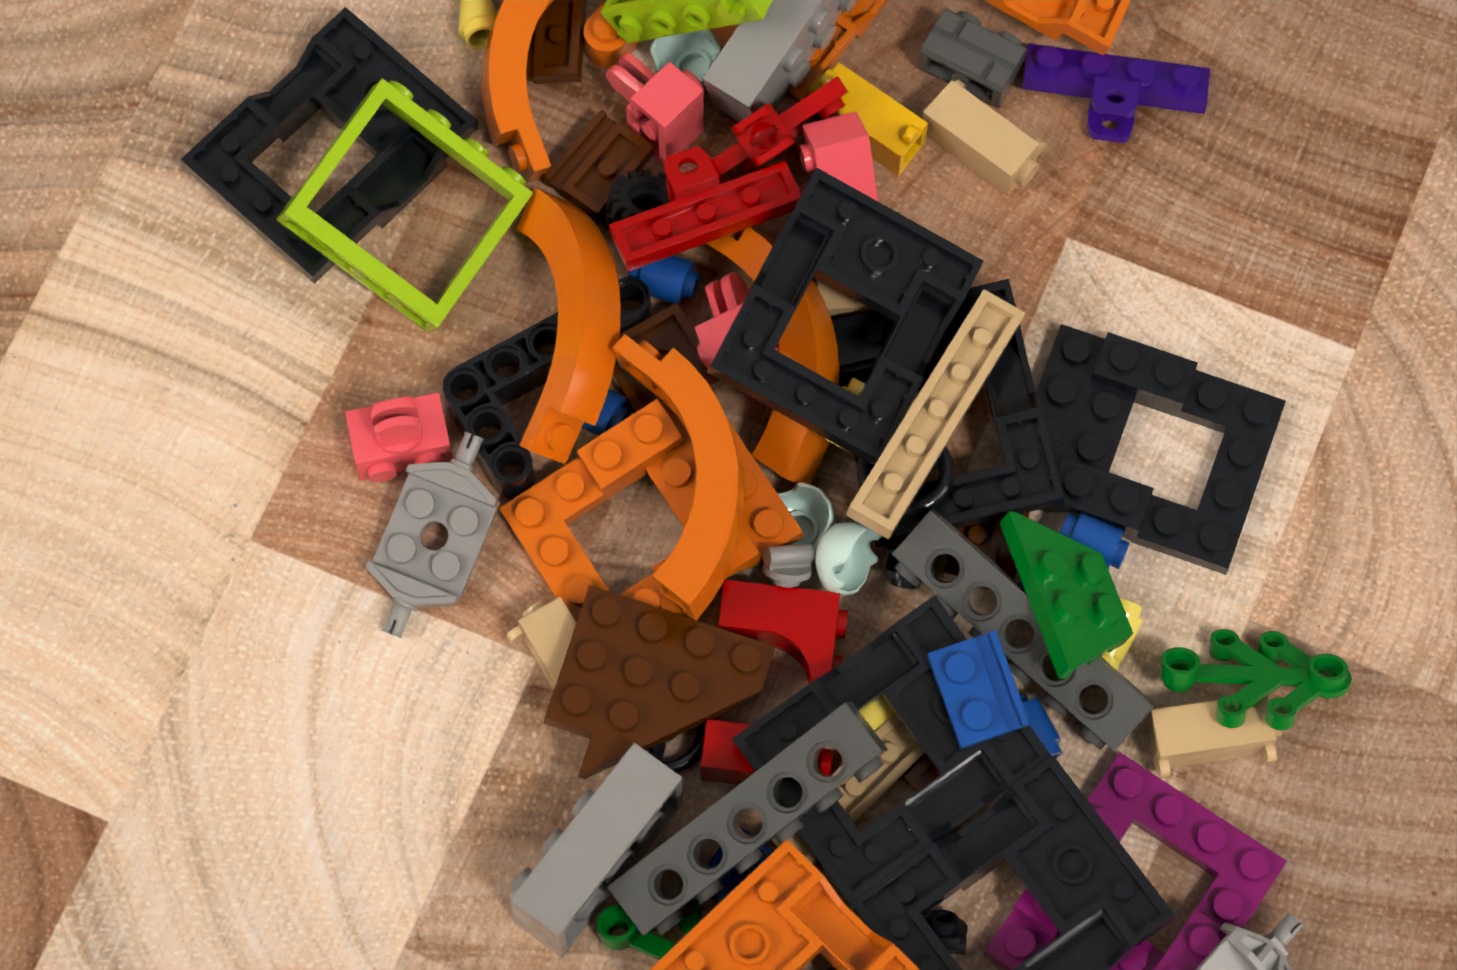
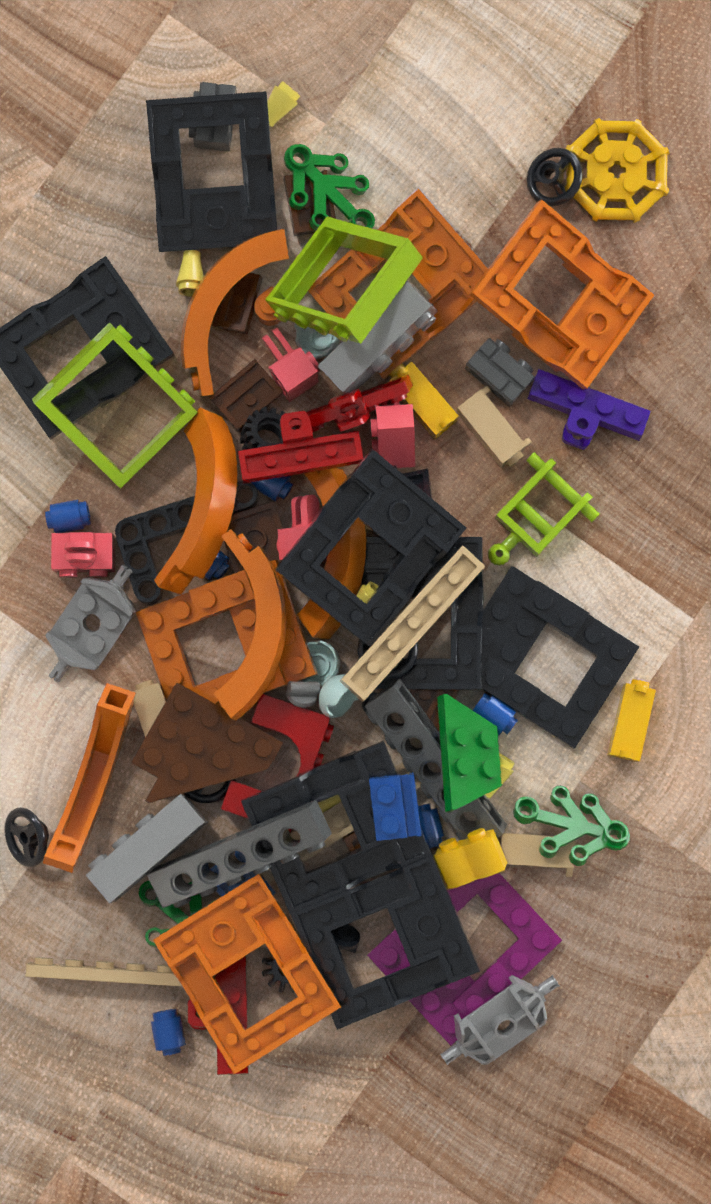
camera: 15 degrees right, 15 degrees up
(364, 386) = (68, 516): none -> blue brick
(405, 879) = (29, 836): none -> black piece
(487, 757) = (93, 778): none -> orange arch
(1059, 275) = (517, 534): none -> lime piece
(1113, 752) = (470, 858): none -> yellow brick
(1304, 510) = (631, 720): none -> yellow brick

